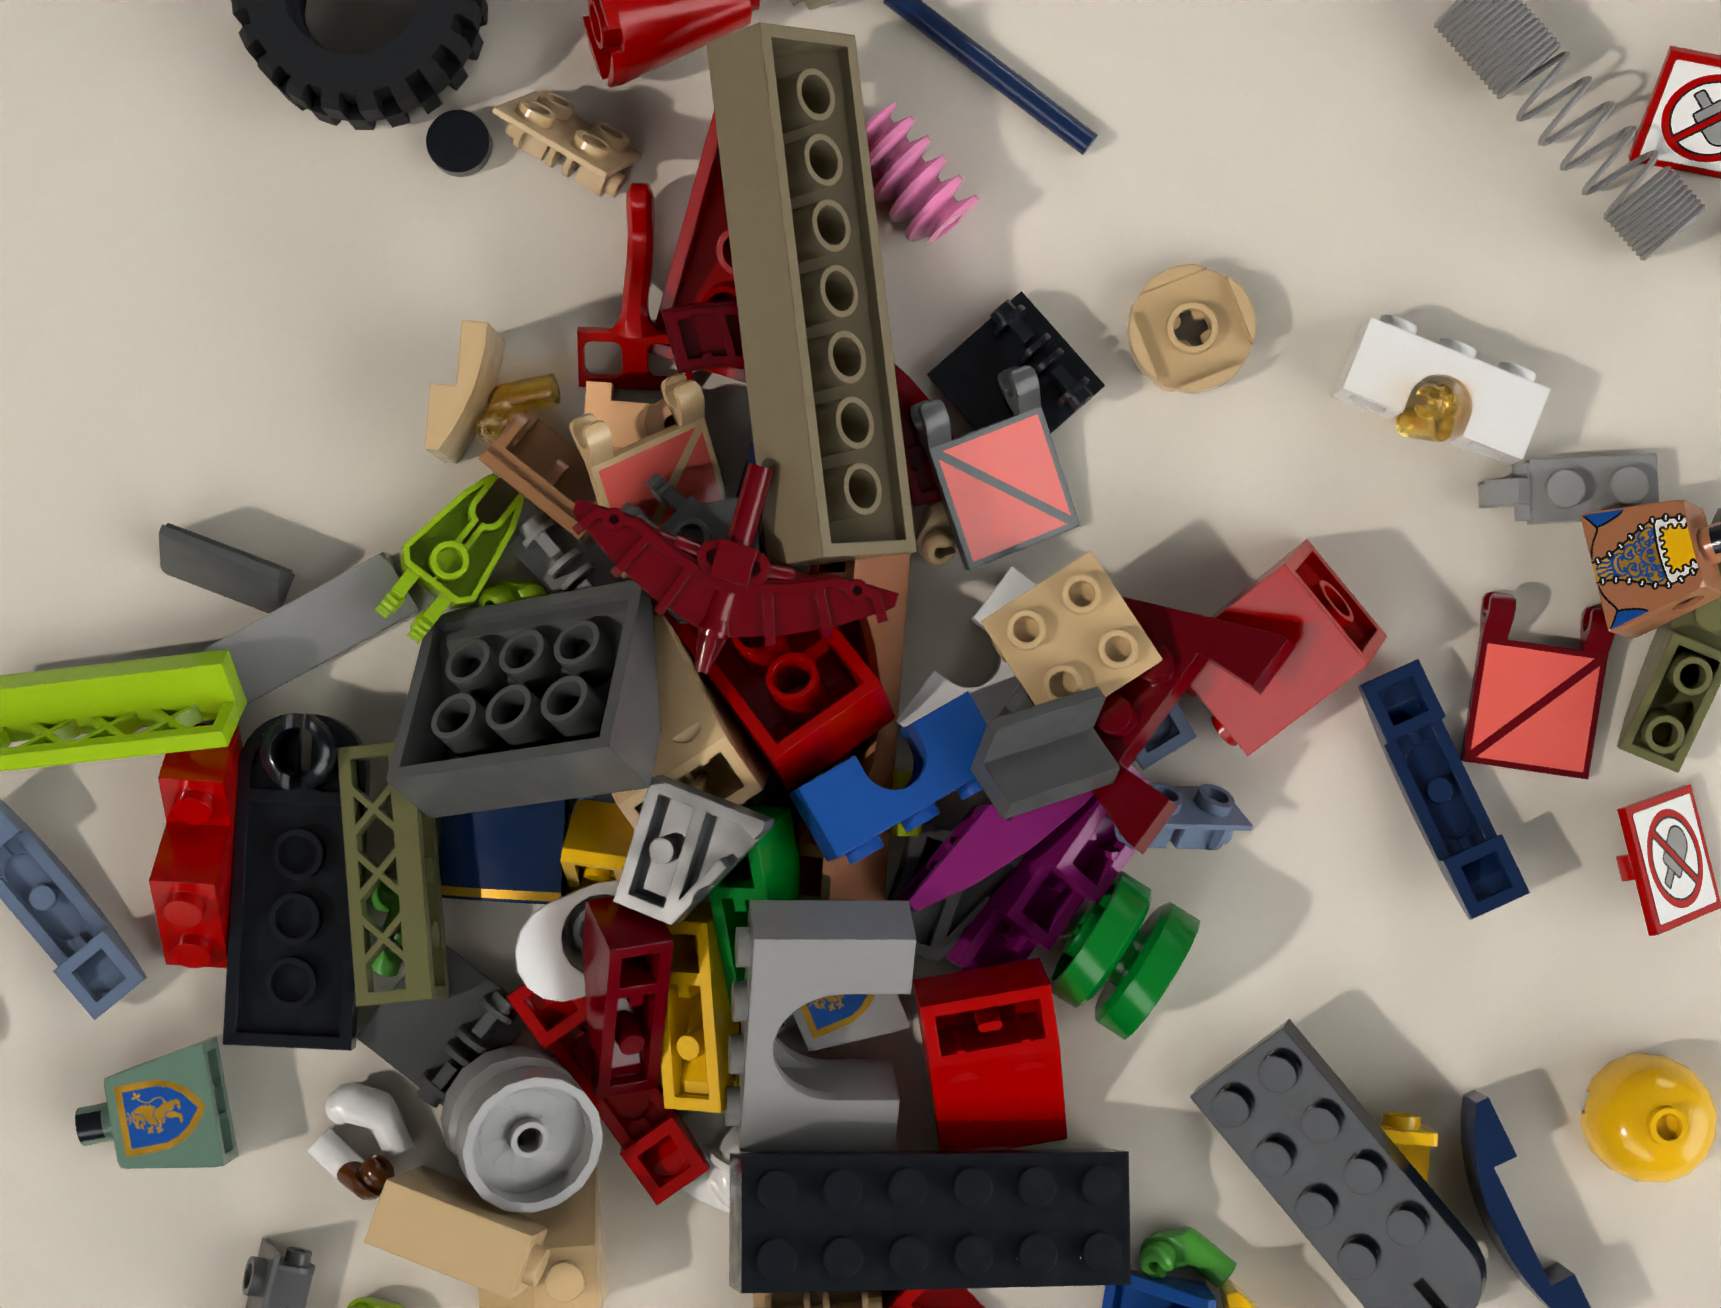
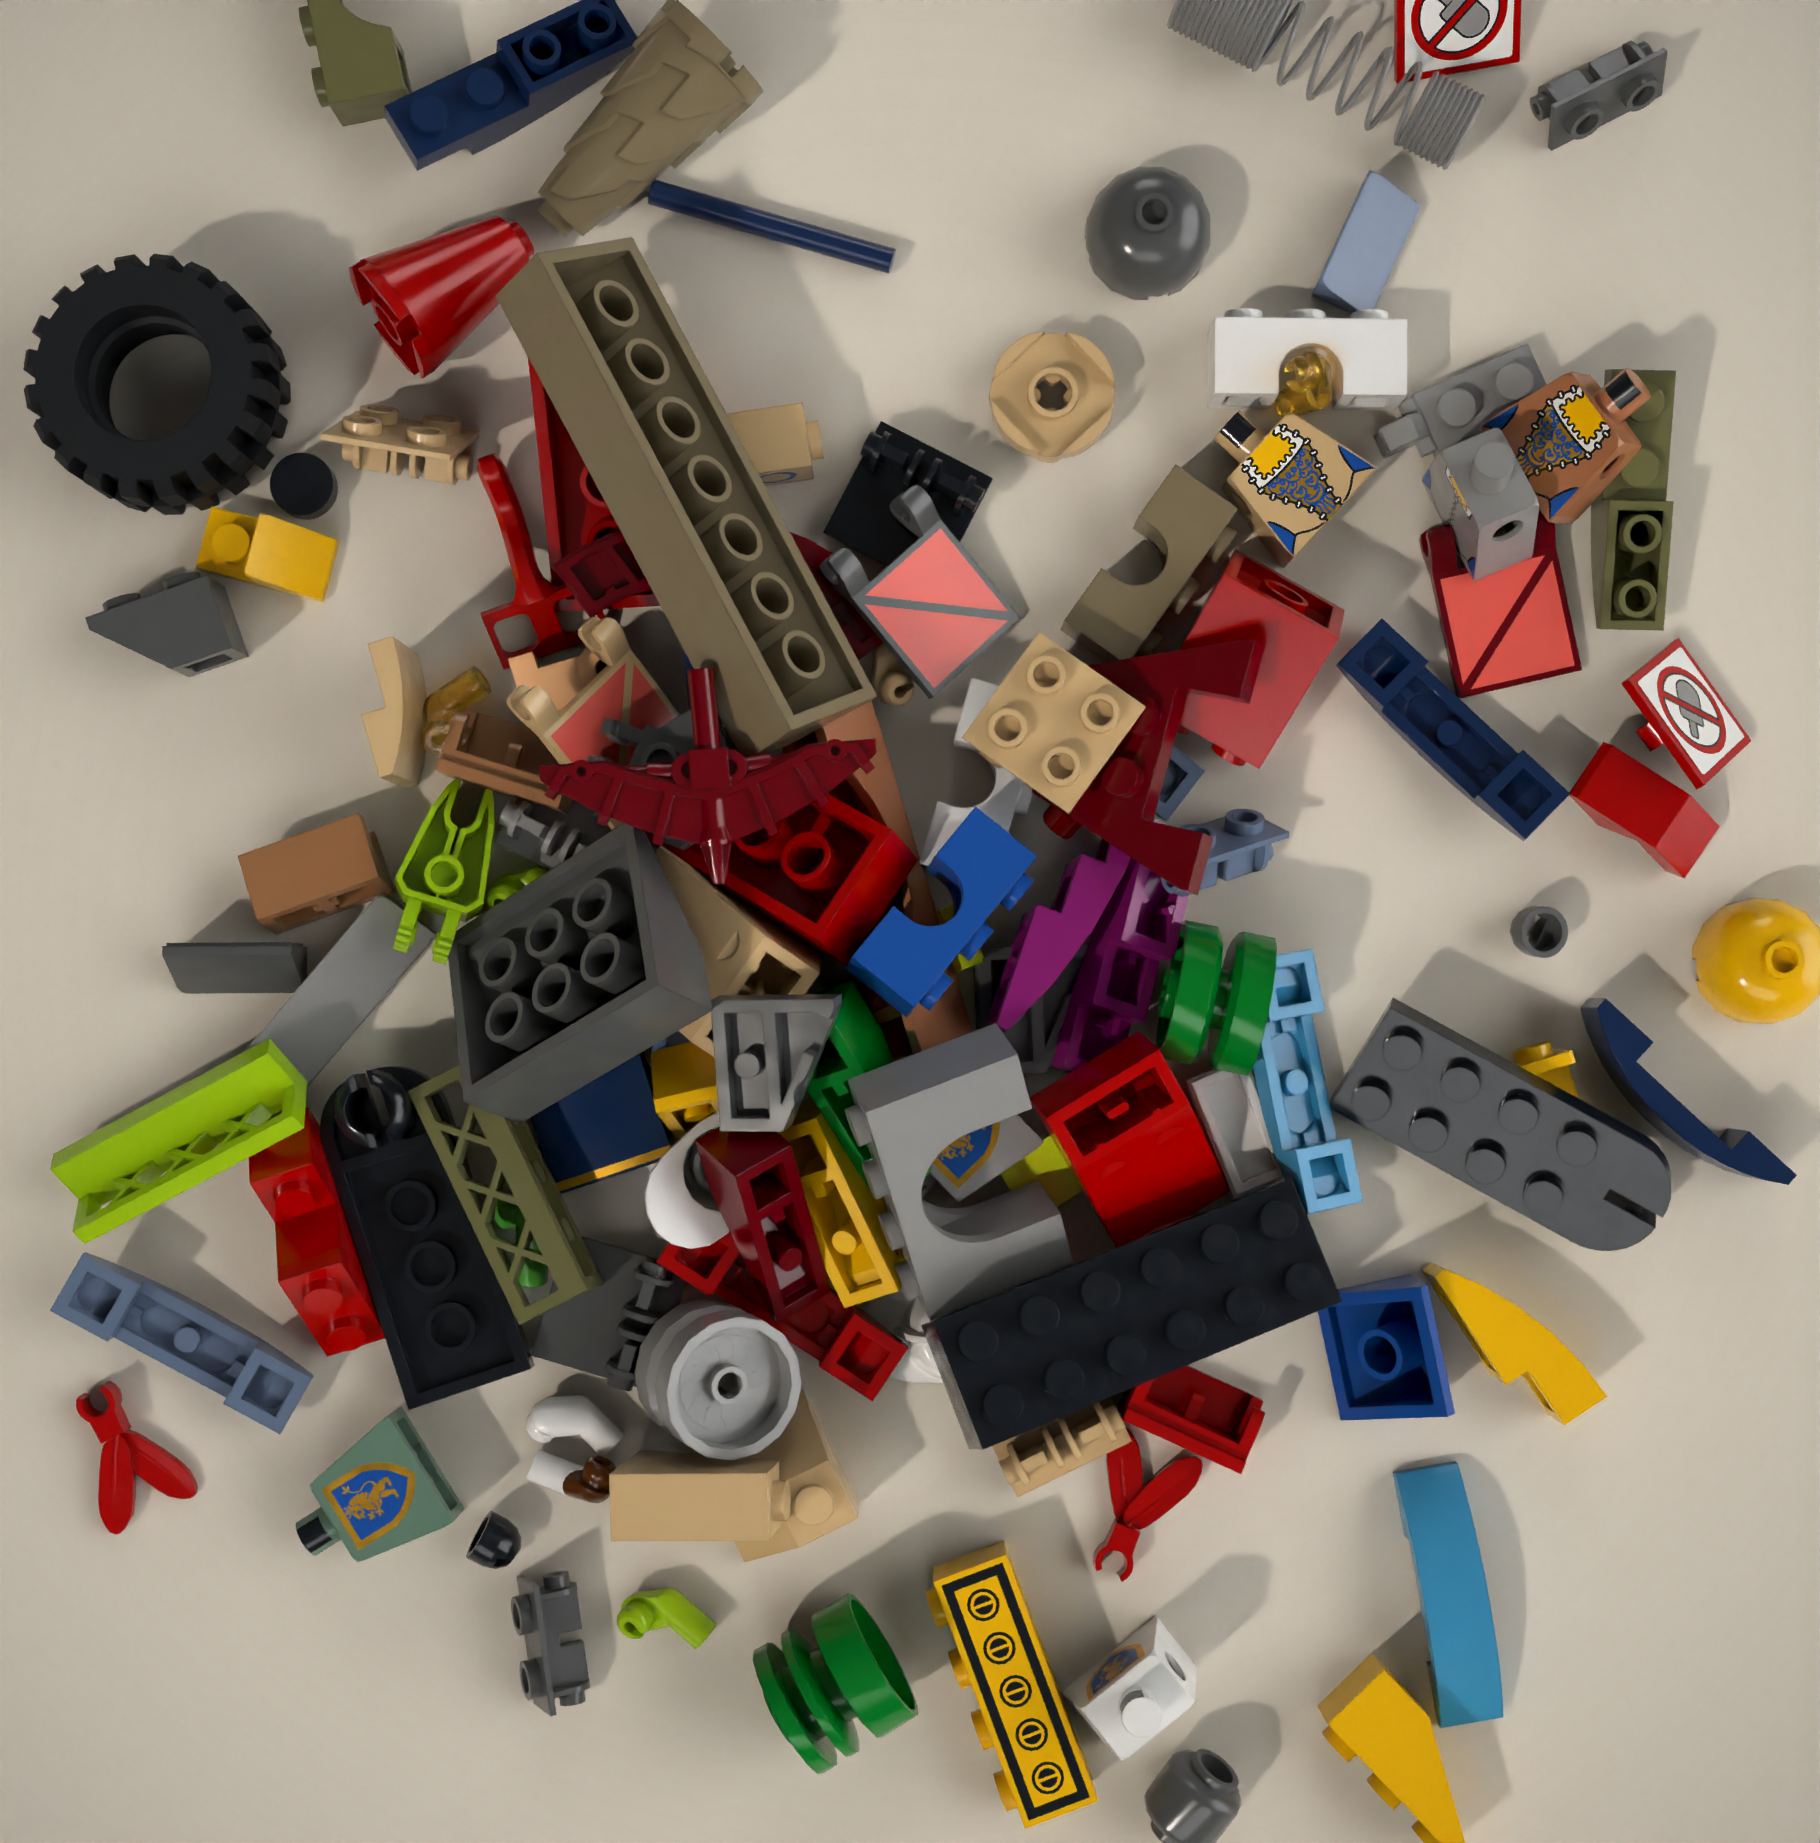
camera: 20 degrees left, 0 degrees up
(254, 1198) = (495, 1542): none -> black hinge
(293, 233) = (181, 627): none -> dark grey slope
(329, 510) = (315, 874): none -> medium nougat hinge
(401, 193) = (267, 553): none -> yellow slope
(905, 1050) = (1049, 1168): none -> neon yellow tile
(912, 179) = (739, 355): bright pink piece -> none
(918, 275) = (779, 442): none -> tan brick
(1044, 754) = (1069, 836): dark grey panel -> none
(1097, 1086) = (1235, 1129): none -> white tile
(1164, 1073) = (1296, 1094): none -> dark azure slope
(1181, 1249) = (1376, 1251): bright green arm -> none
(1267, 502) = (1185, 526): none -> dark tan arch
(1339, 211) = (1147, 233): none -> dark grey cylinder
(1381, 495) = (1288, 480): none -> torso
(1457, 1016) = (1547, 934): none -> dark grey hinge
(1541, 303) = (1367, 245): none -> sand blue slope
(1555, 579) = (1478, 491): none -> light grey torso
(1595, 933) = (1644, 807): none -> red slope

